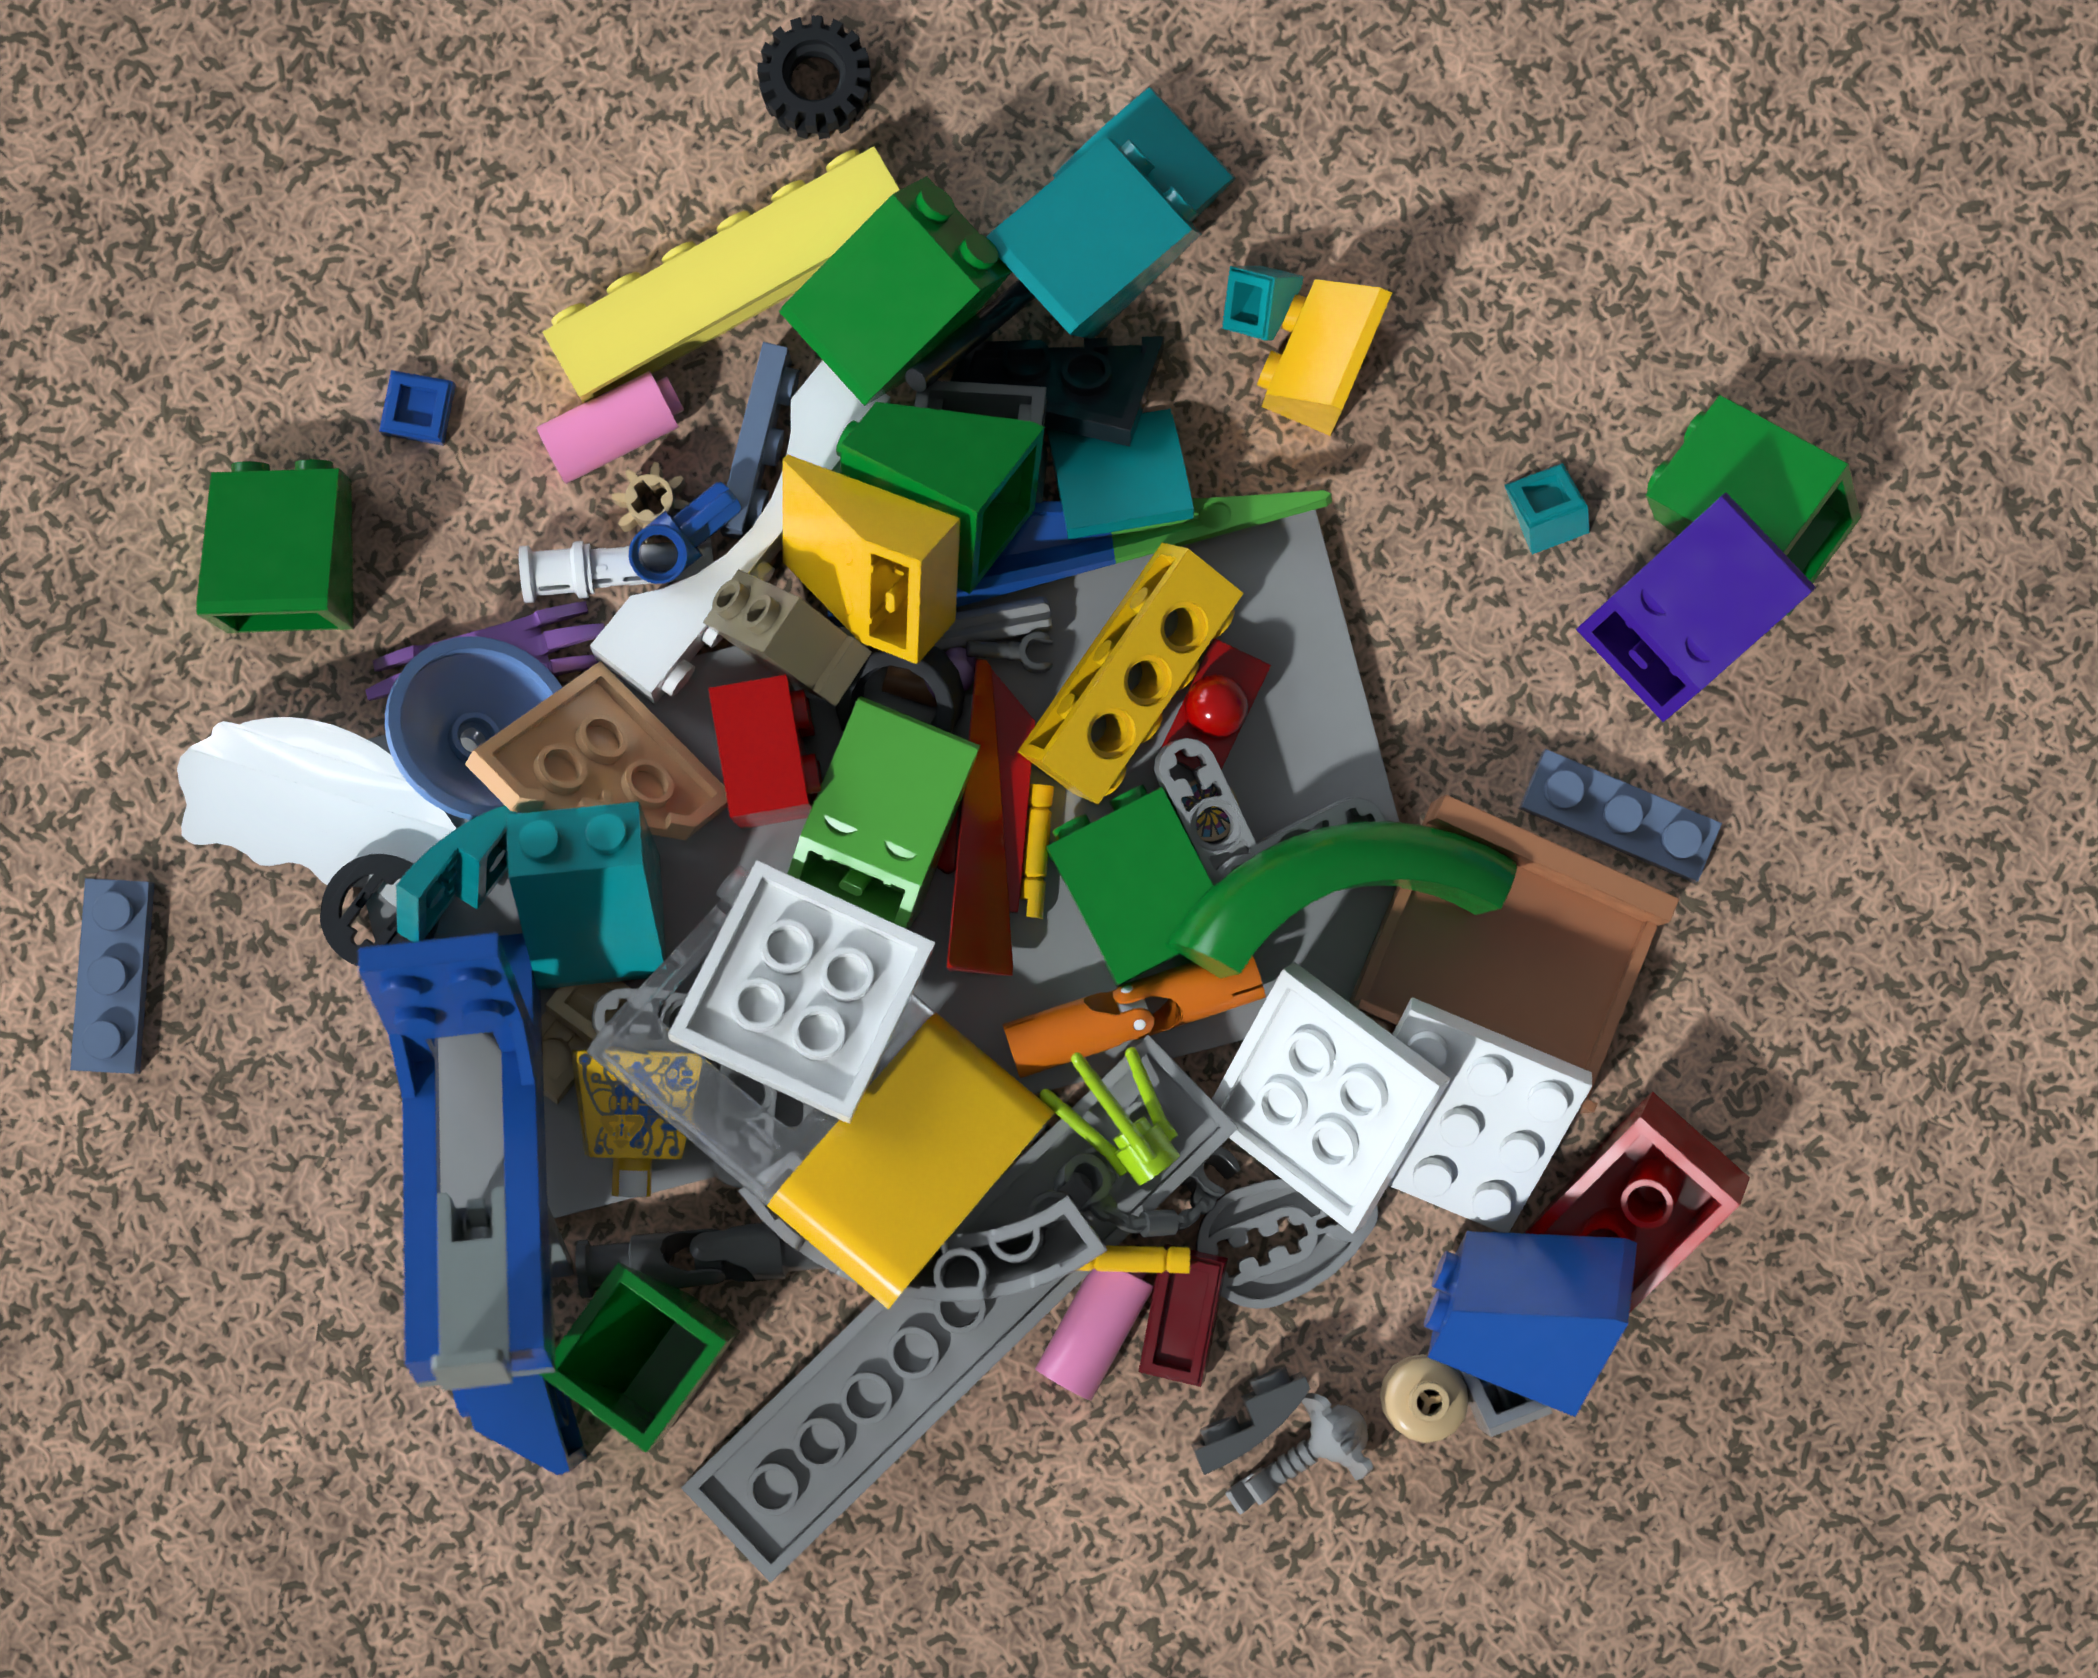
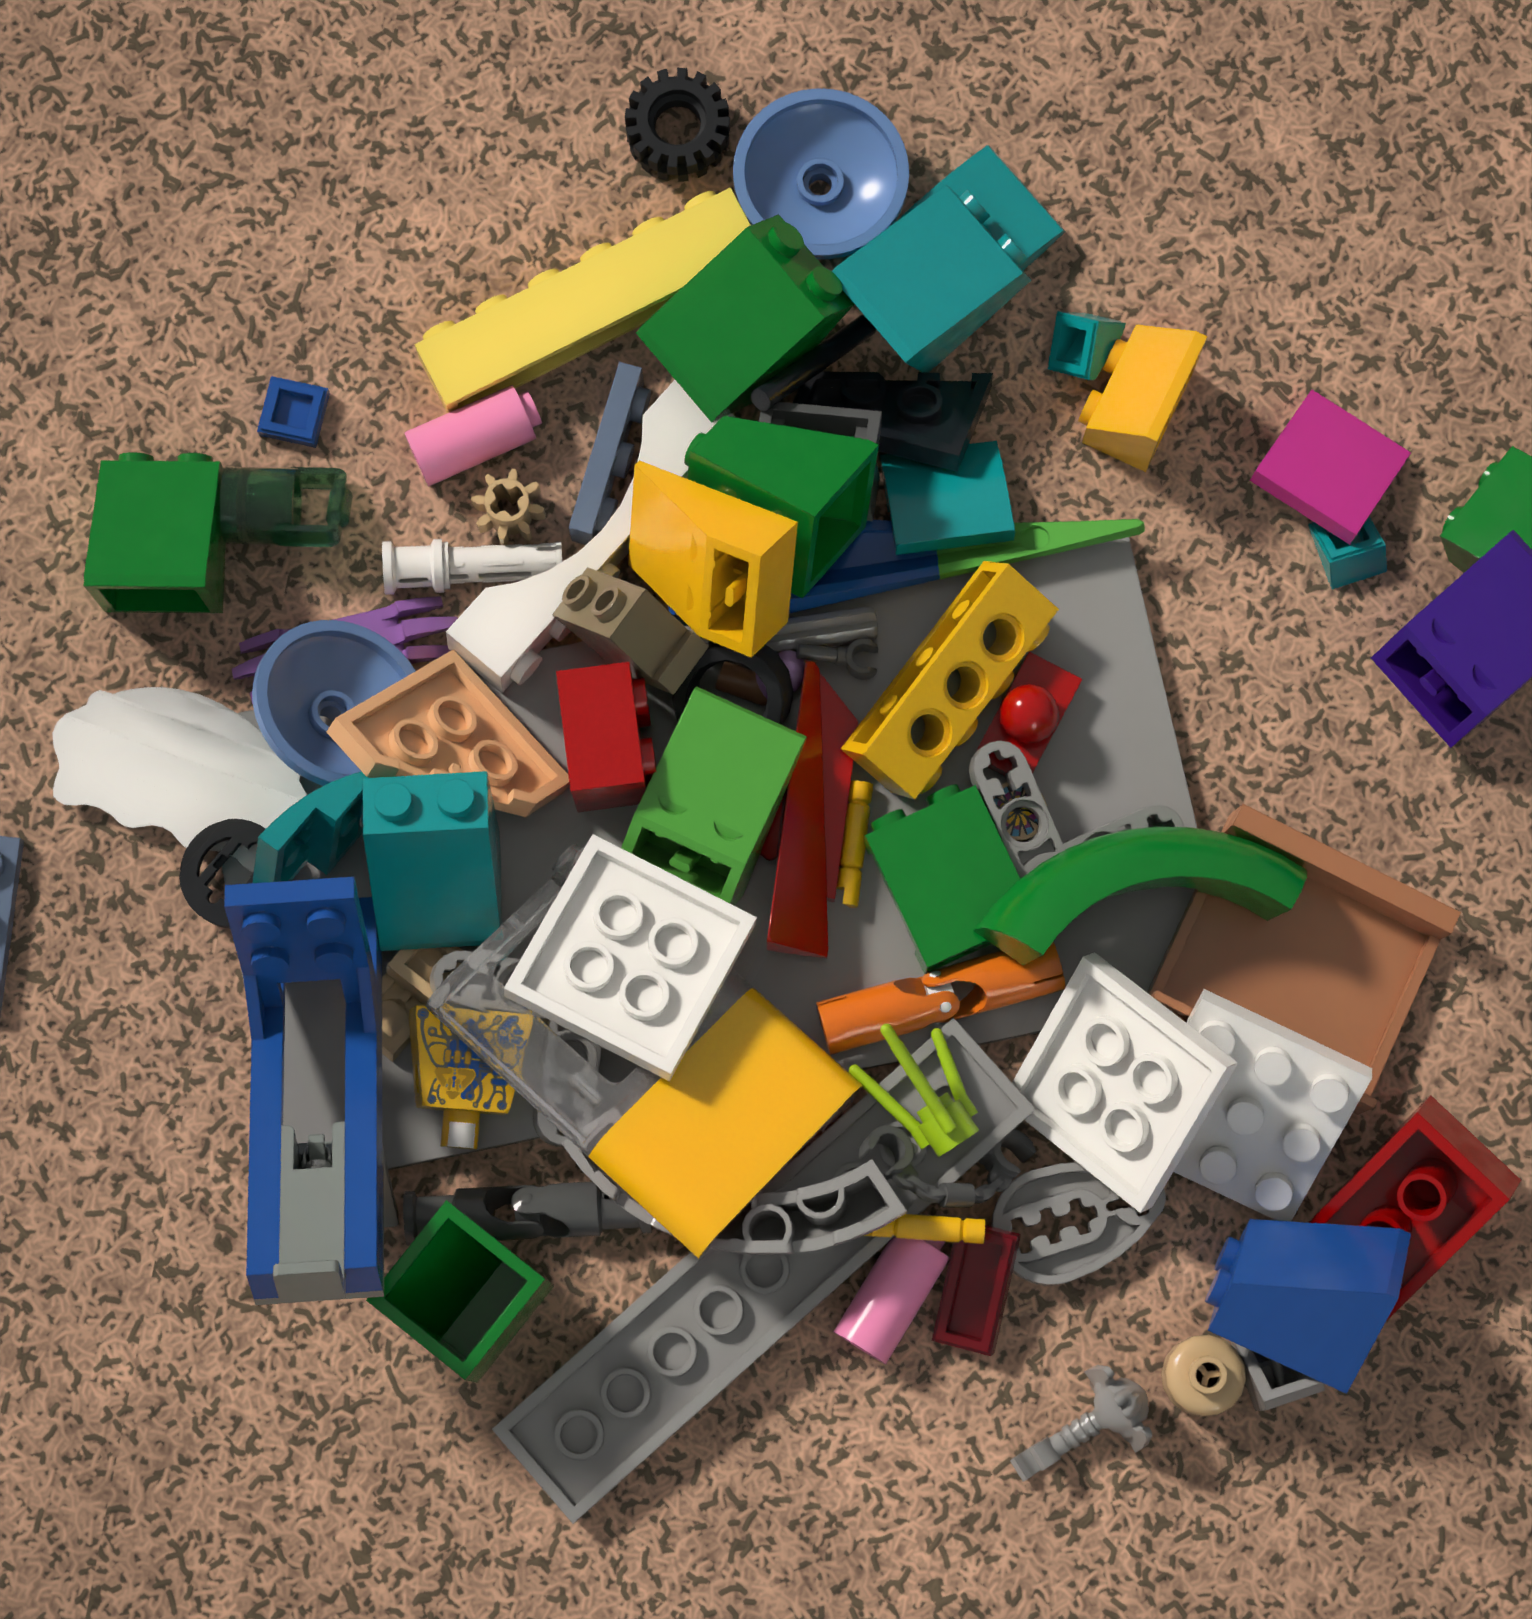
camera: 10 degrees right, 5 degrees down
(394, 512) = (266, 505): none -> clear green piece
(527, 1419) = (347, 1341): blue slope -> none
(687, 531) = (541, 530): blue axle -> none
(977, 87) = (830, 140): none -> medium blue dish
(1268, 1406) = (1056, 1375): dark grey slope -> none
(1526, 423) = (1330, 466): none -> dark pink tile
(1620, 816) = (1408, 836): sand blue plate -> none

